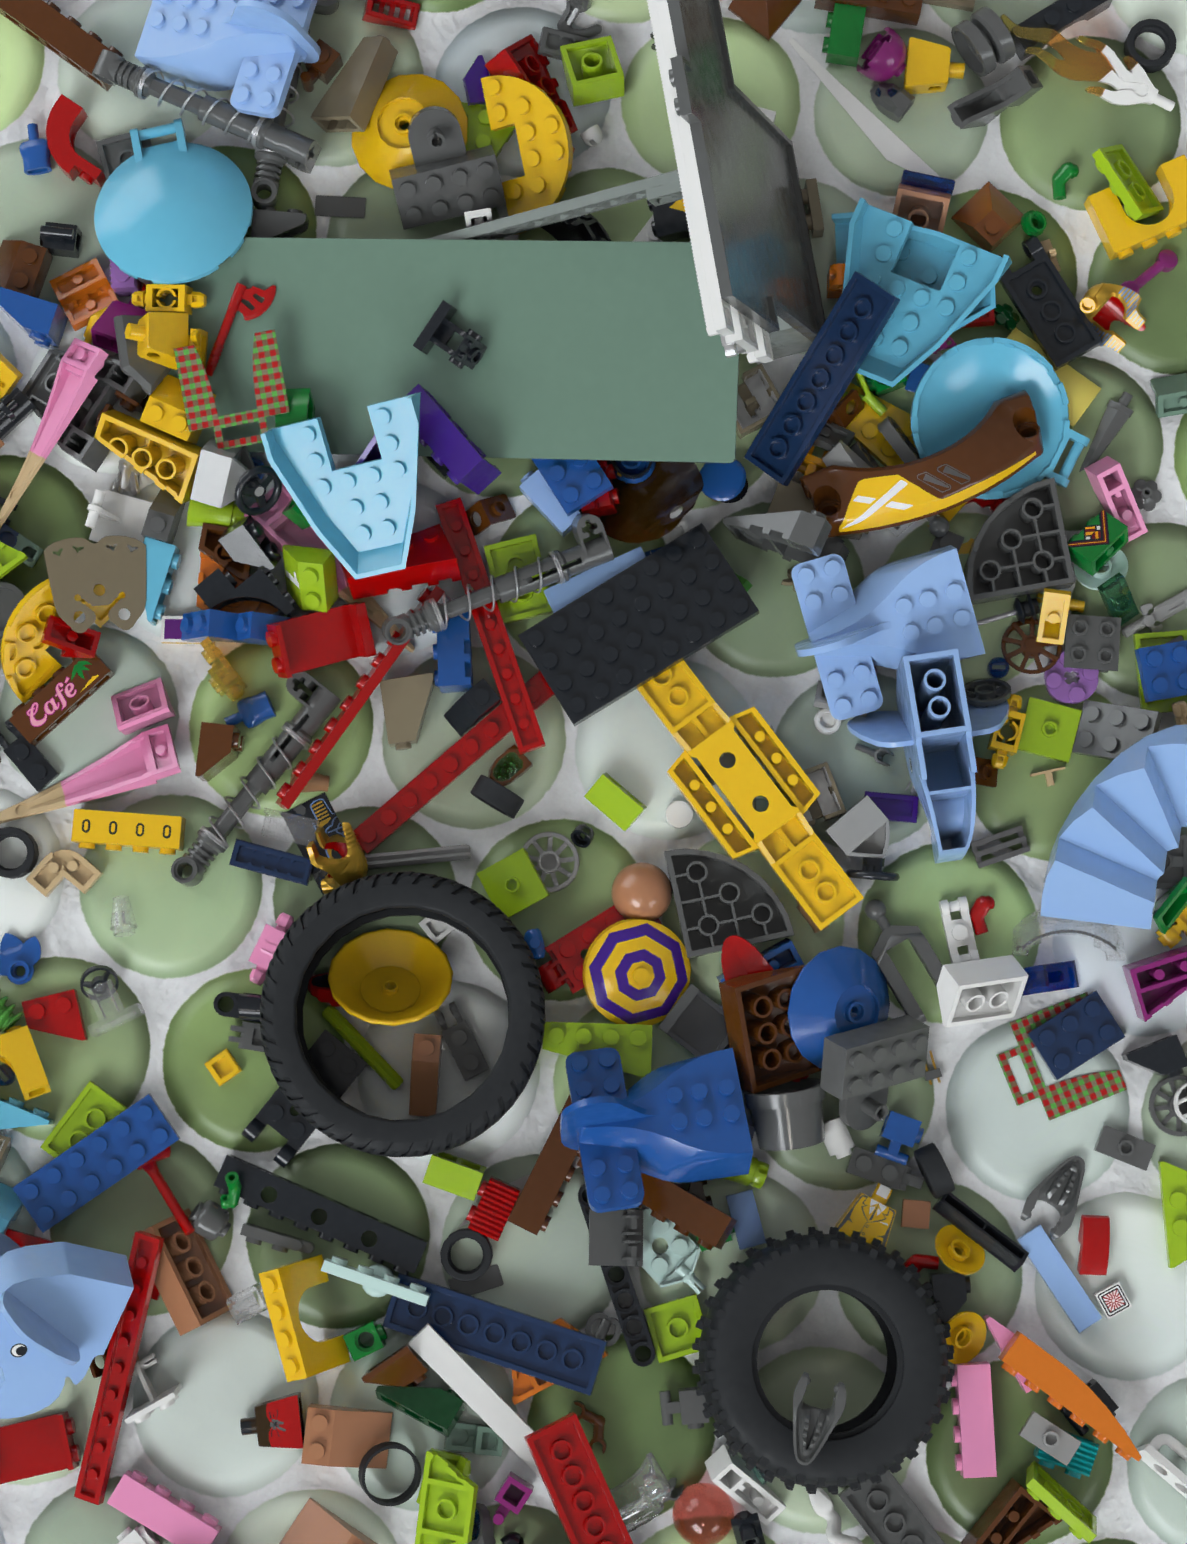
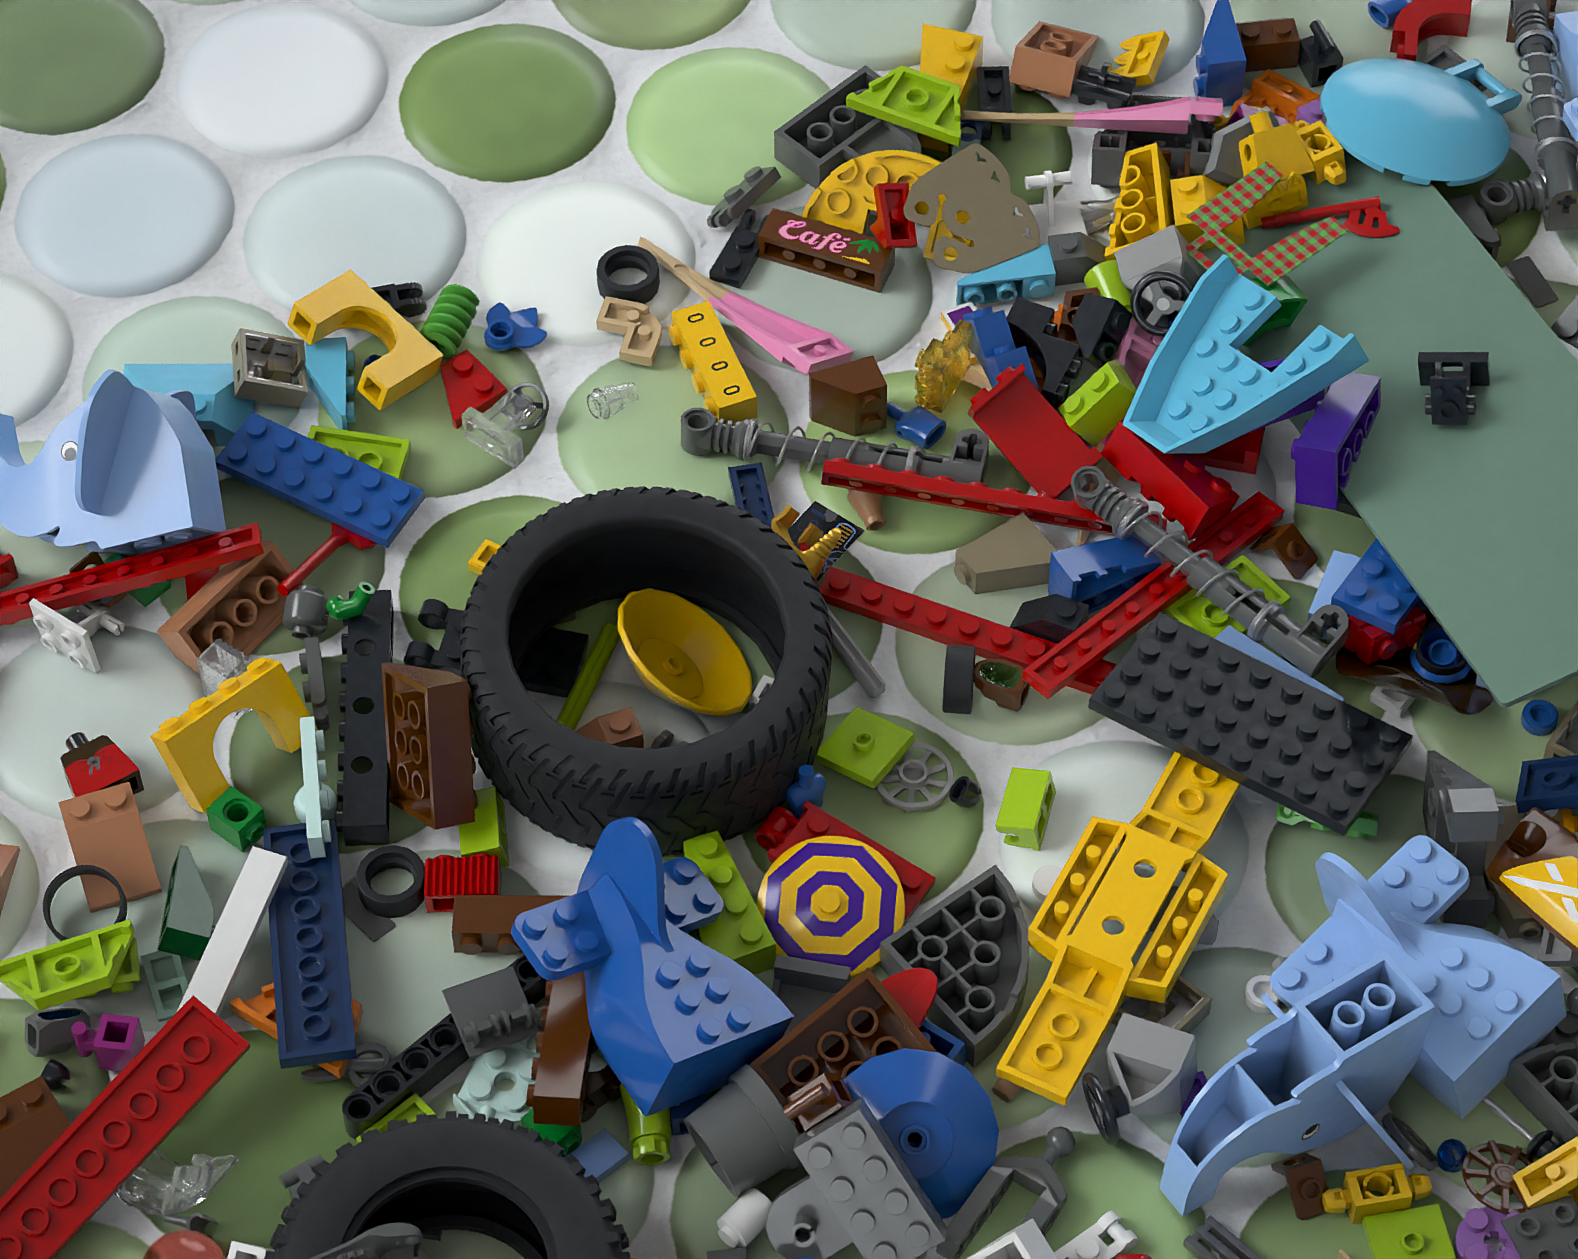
camera: 60 degrees right, 30 degrees down
(142, 706) = (856, 325): bright pink slope -> none
(289, 827) = (807, 500): clear panel -> none
(397, 1193) = (429, 744): none -> reddish brown slope
(398, 1369) = (218, 852): reddish brown slope -> none
(598, 1424) = (248, 1110): reddish brown arm -> none
(641, 891) = (931, 872): nougat piece -> none
(724, 481) = (1484, 756): blue piece -> none
(806, 1062) = (818, 1101): none -> reddish brown brick

